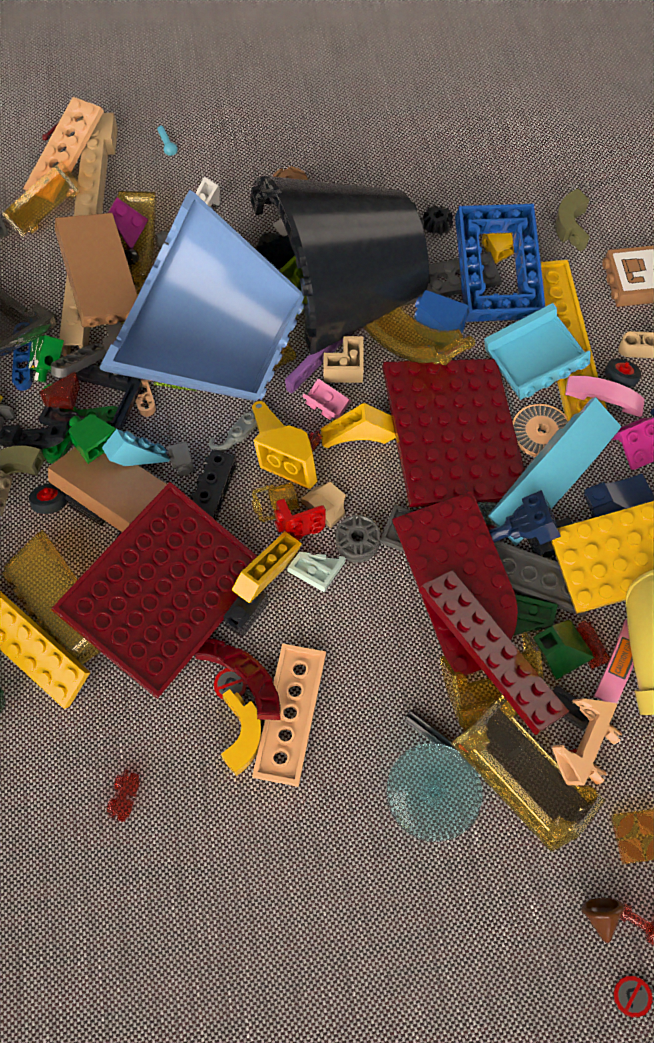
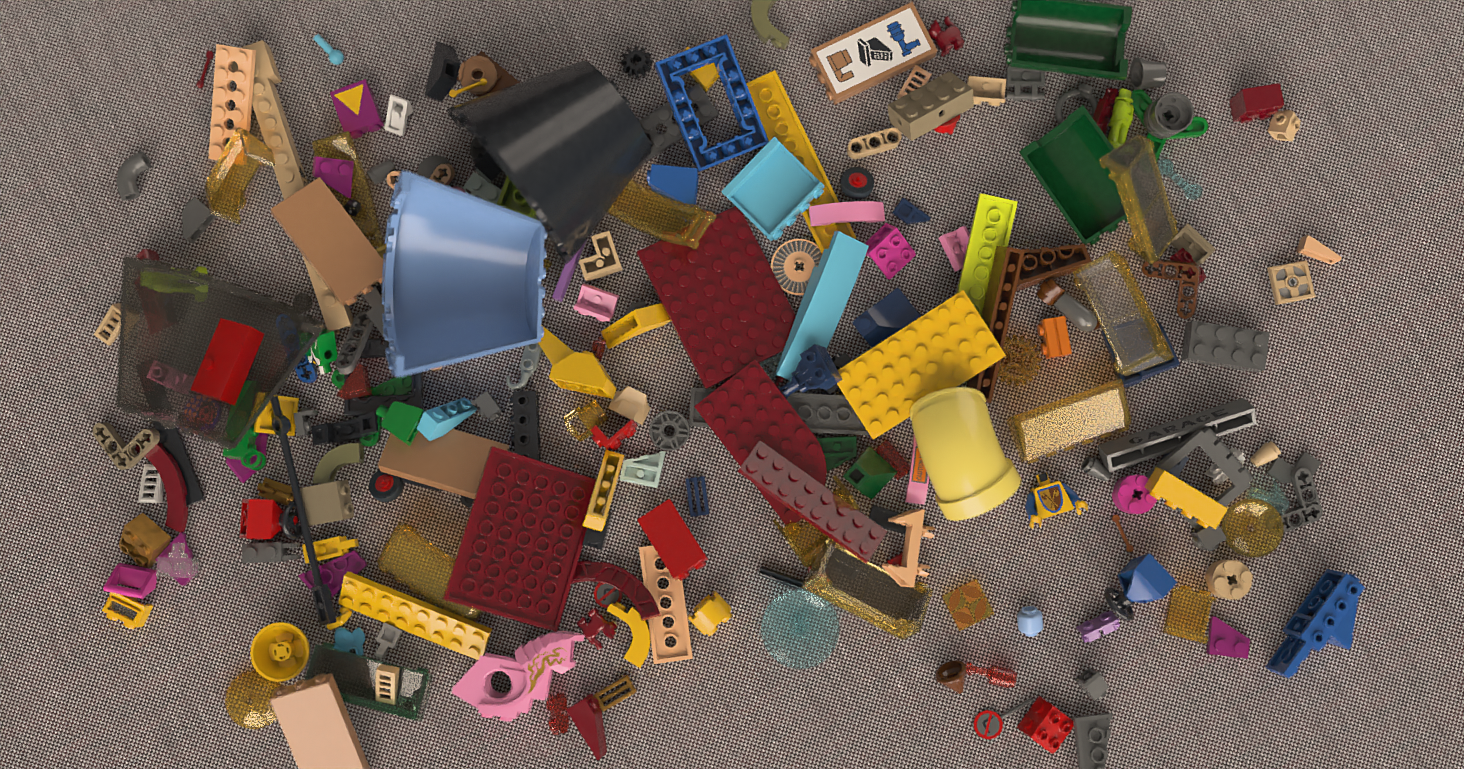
camera: 15 degrees left, 20 degrees up
(109, 736) = (529, 673): none -> bright pink animal
(154, 817) = (589, 721): none -> dark red slope
(170, 185) = (357, 109): none -> magenta brick
(178, 809) = (629, 684): none -> pearl gold tile
(203, 712) = (597, 623): none -> dark red animal
(263, 168) = (443, 72): none -> black slope
(323, 647) = (673, 540): none -> red panel
(335, 738) = (710, 613): none -> yellow brick
(366, 598) = (698, 513): none -> dark blue tile

